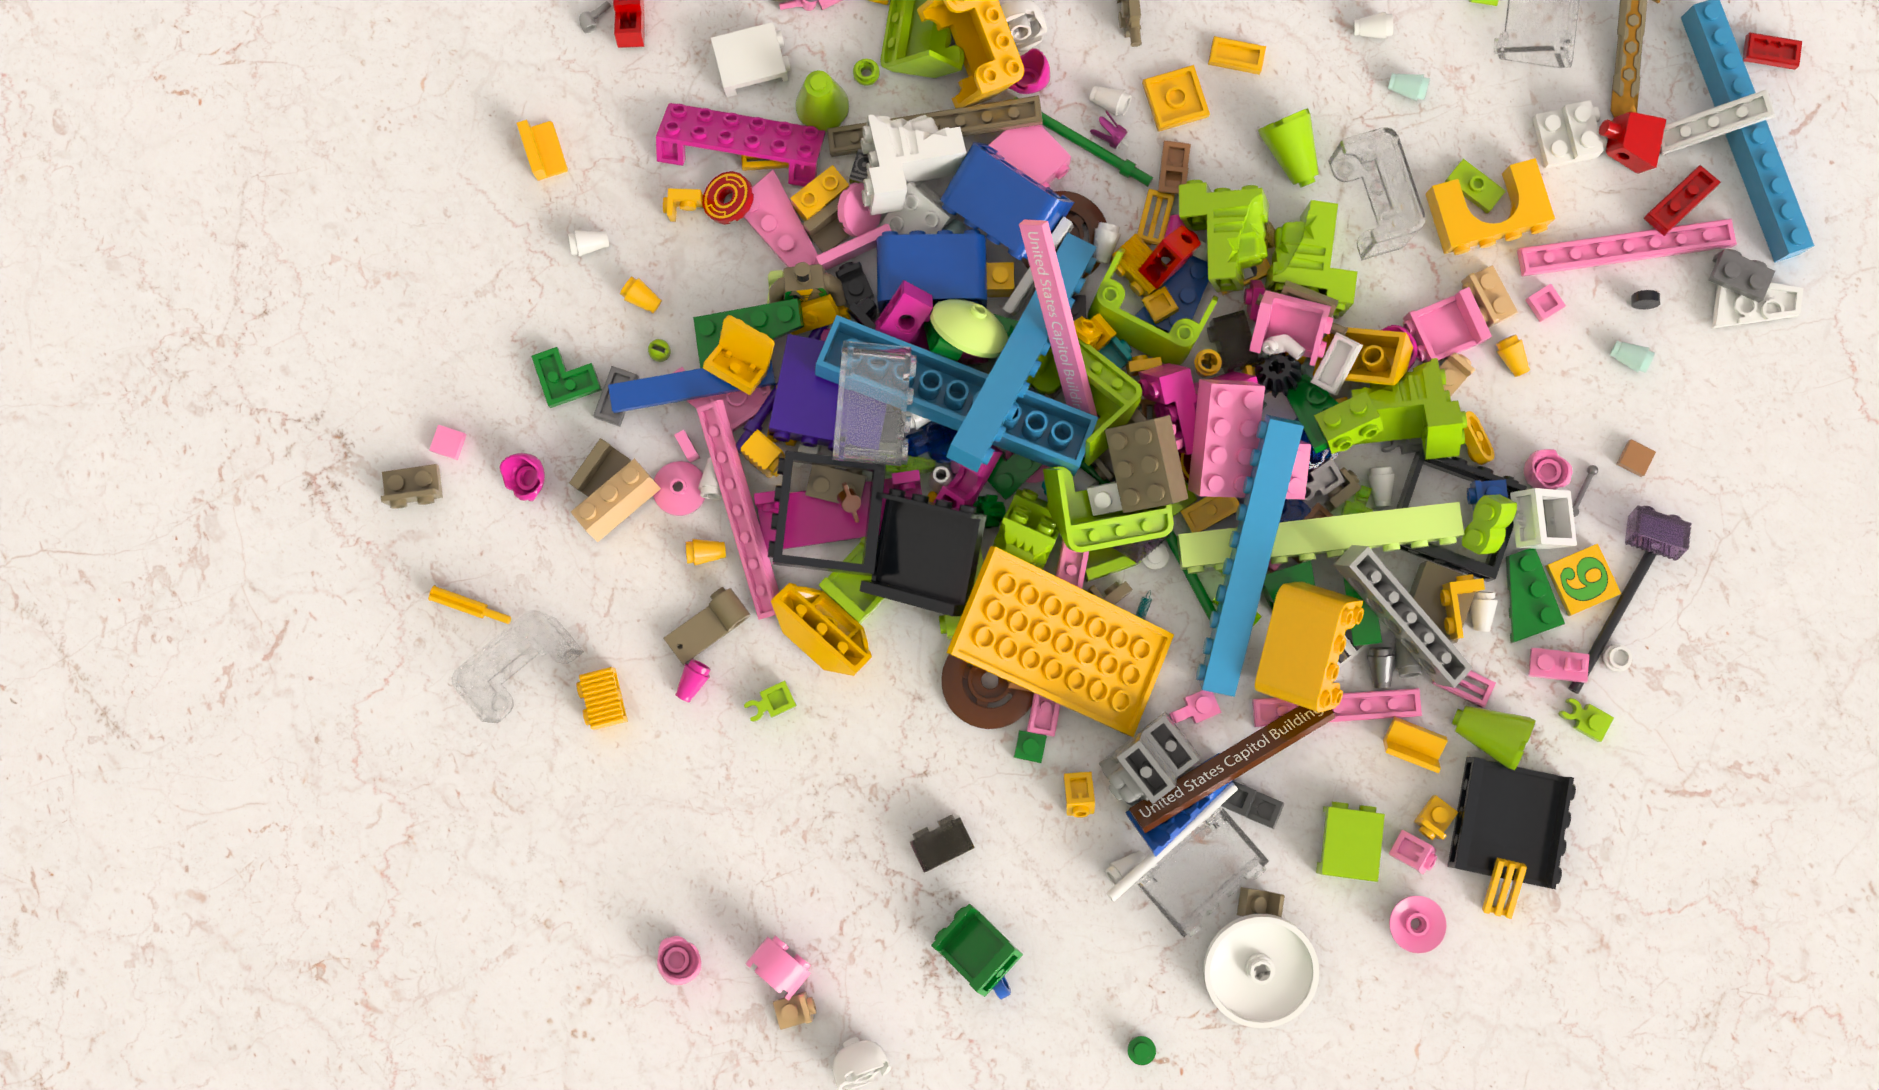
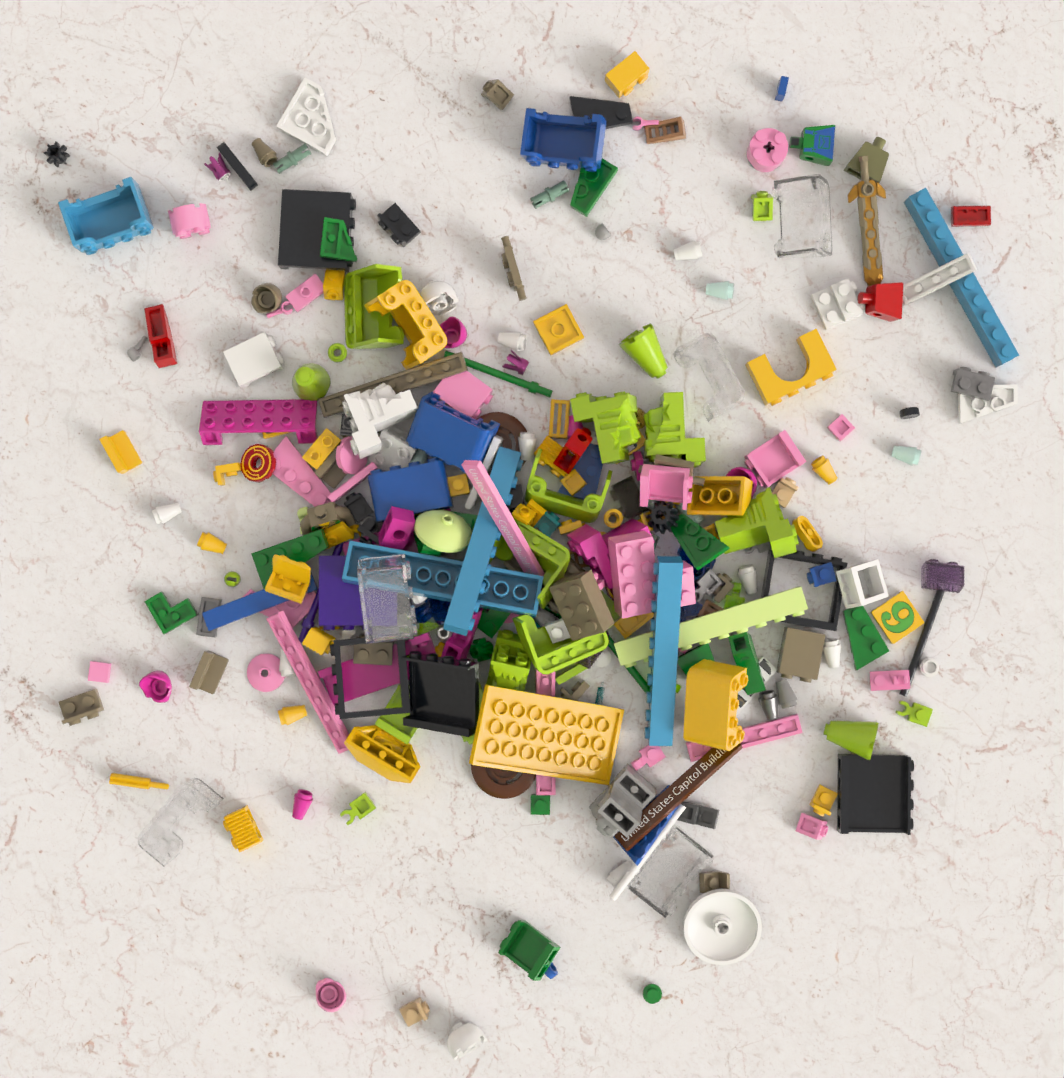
camera: 10 degrees left, 5 degrees up
(615, 500) = (223, 691): tan brick -> none
(687, 446) = (265, 643): bright pink tile -> none
(707, 626) = (304, 764): dark tan door -> none
(779, 967) = (398, 987): bright pink brick -> none
(849, 501) = (384, 667): reddish brown piece -> none
(941, 843) = (492, 882): clear smoke brick -> none
(1079, 794) = (579, 830): yellow bracket -> none
(1173, 166) = (565, 381): medium nougat slope -> none
(1236, 55) = (596, 290): yellow tile -> none
(1281, 344) = (662, 497): white arm -> none
(1336, 363) = (701, 505): white tile -> none
(1349, 422) = (716, 546): lime bracket -> none
(1351, 842) = (768, 828): lime panel -> none
(1403, 616) = (775, 672): light grey brick -> none
(1414, 744) = (800, 754): yellow panel -> none
(1430, 929) = (826, 883): bright pink dish -> none
(1449, 599) = (813, 642): yellow bracket -> none
(1468, 697) = (811, 700): bright pink tile -> none
(1476, 186) = (778, 353): lime plate -> none
(1489, 522) = (824, 597): lime brick -> none
(1490, 296) = (801, 431): tan bracket -> none
(1498, 910) = (882, 853): yellow tile -> none
(1547, 470) = (860, 547): bright pink hair -> none
(1592, 470) = (892, 539): flat silver hinge -> none
(1626, 247) = (891, 377): bright pink tile -> none
(1636, 458) = (920, 525): medium nougat tile -> none
(1682, 200) = (924, 336): red tile -> none

